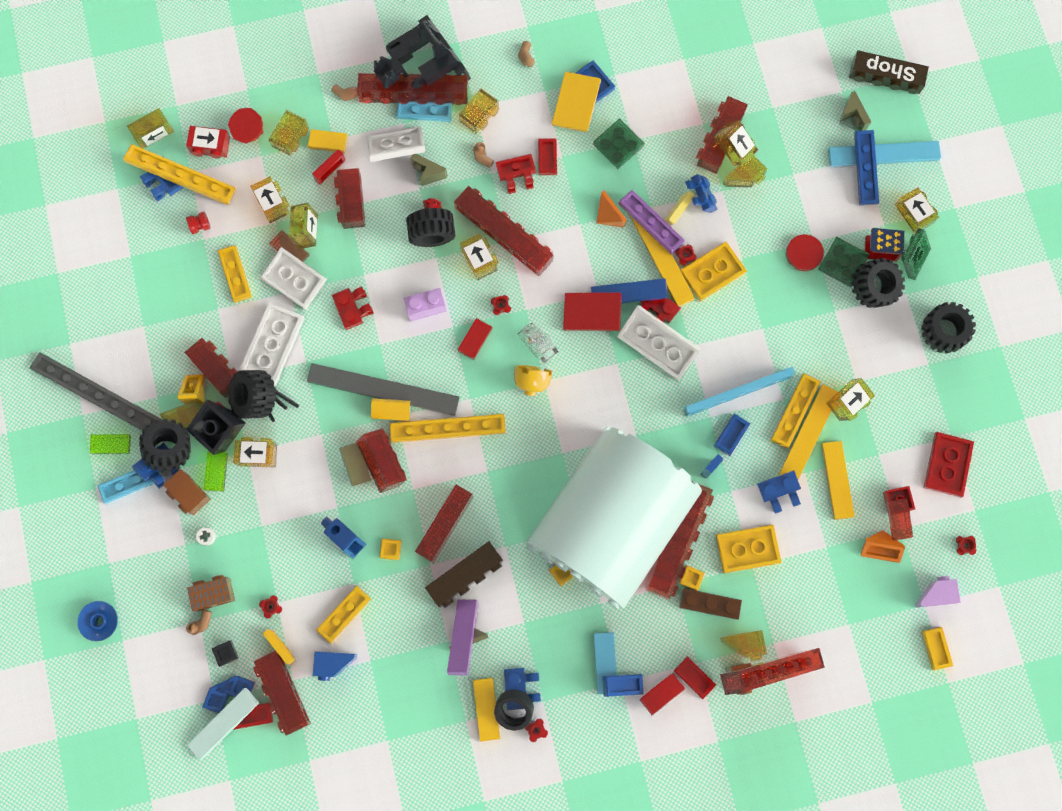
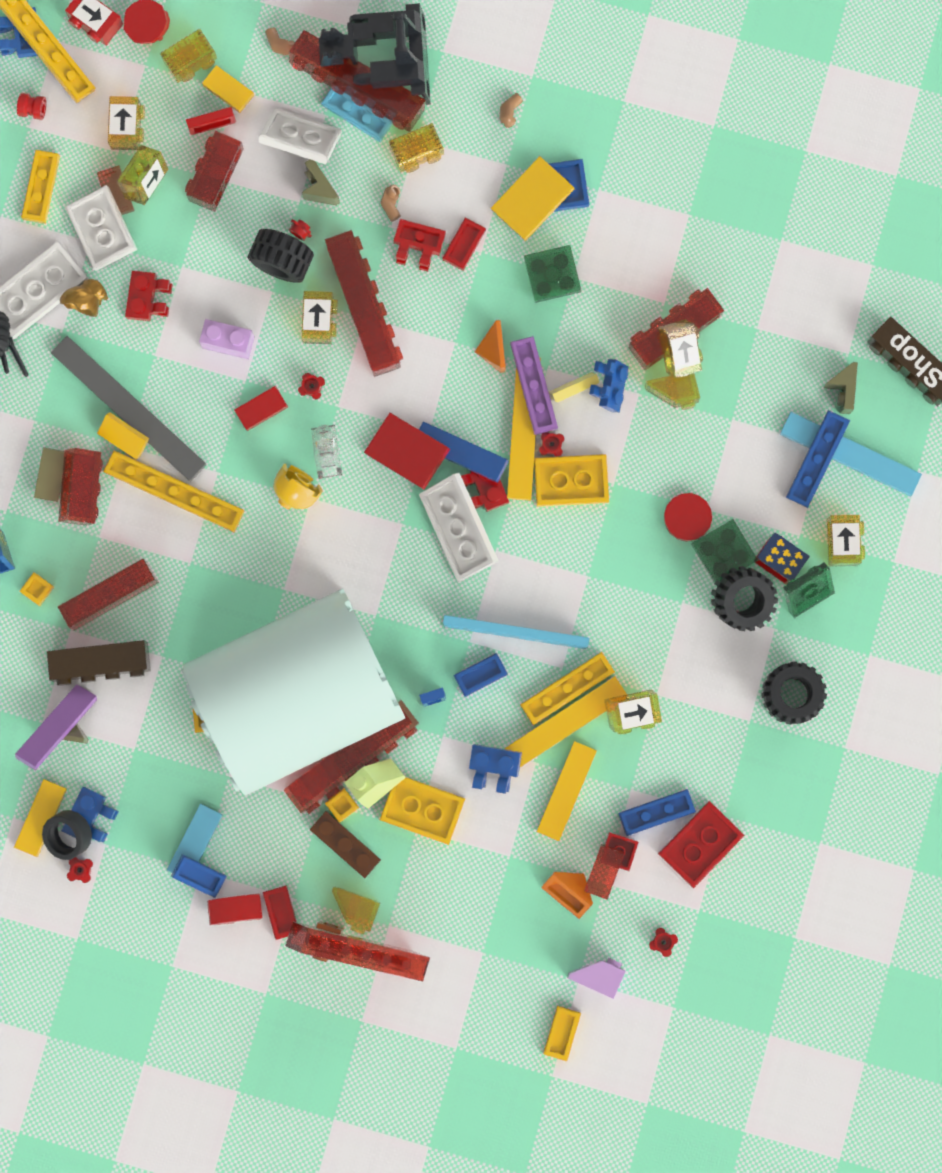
camera: 30 degrees right, 5 degrees up
(310, 330) = (85, 297): none -> pearl gold hair
(706, 547) = (374, 781): none -> yellowish green slope
(906, 460) = (656, 812): none -> blue tile

